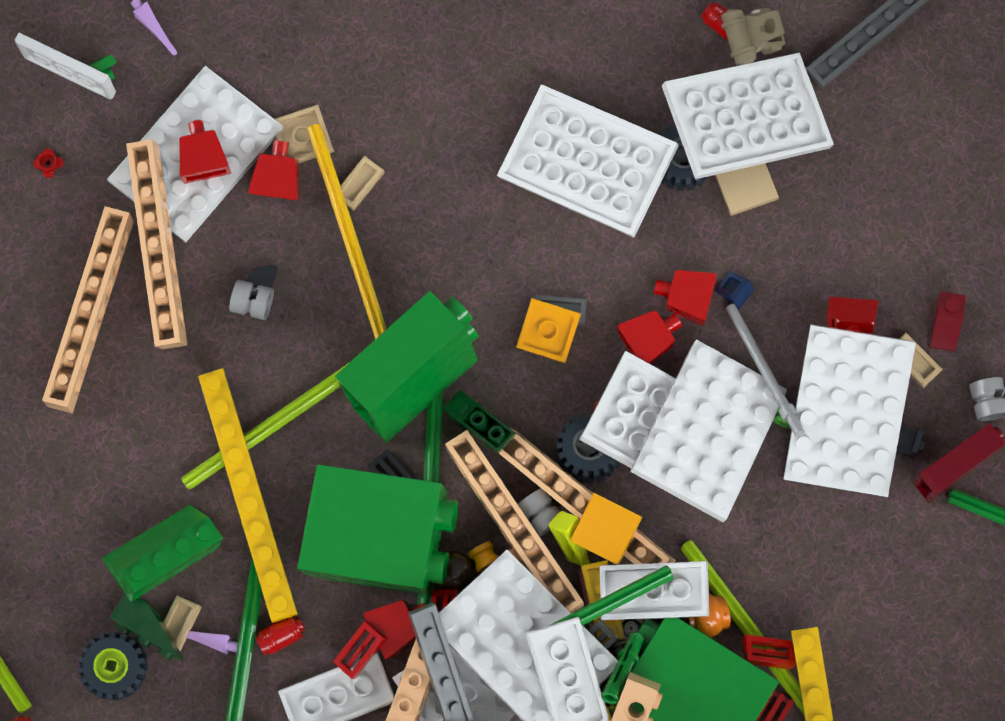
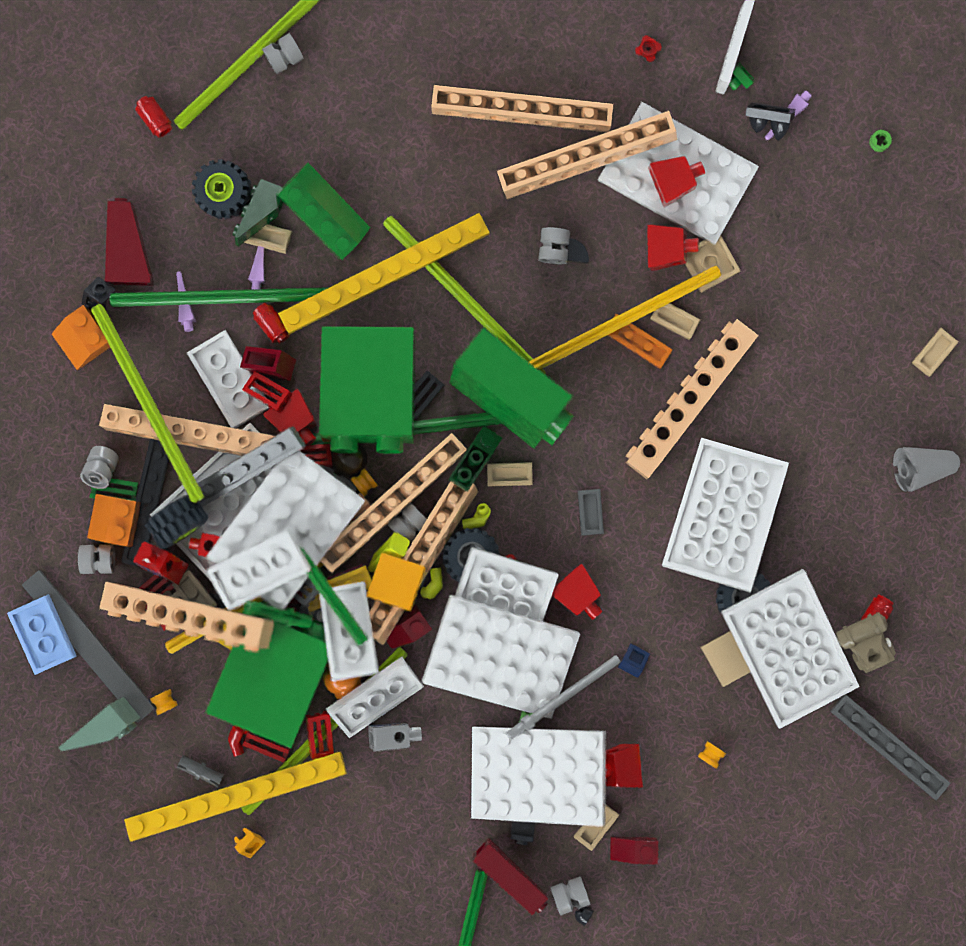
camera: 75 degrees right, 10 degrees up
(154, 33) = (779, 116): none -> black tile
(326, 644) = (268, 362): none -> dark red slope
(380, 223) = (642, 344): none -> orange tile
(395, 112) = (743, 338): none -> light nougat brick
(502, 391) = (509, 474): none -> tan tile
(547, 434) = (479, 518): none -> neon yellow arm
(548, 330) = (569, 505): light orange tile -> none
(615, 495) = (434, 586): none -> neon yellow arm
(661, 529) = (408, 628): none -> dark red slope
(688, 294) = (621, 620): red torso -> none
(734, 581) = (375, 697): none -> white tile
(781, 570) = (382, 736): none -> light grey torso
(852, 220) = (711, 755): none -> light orange wheel

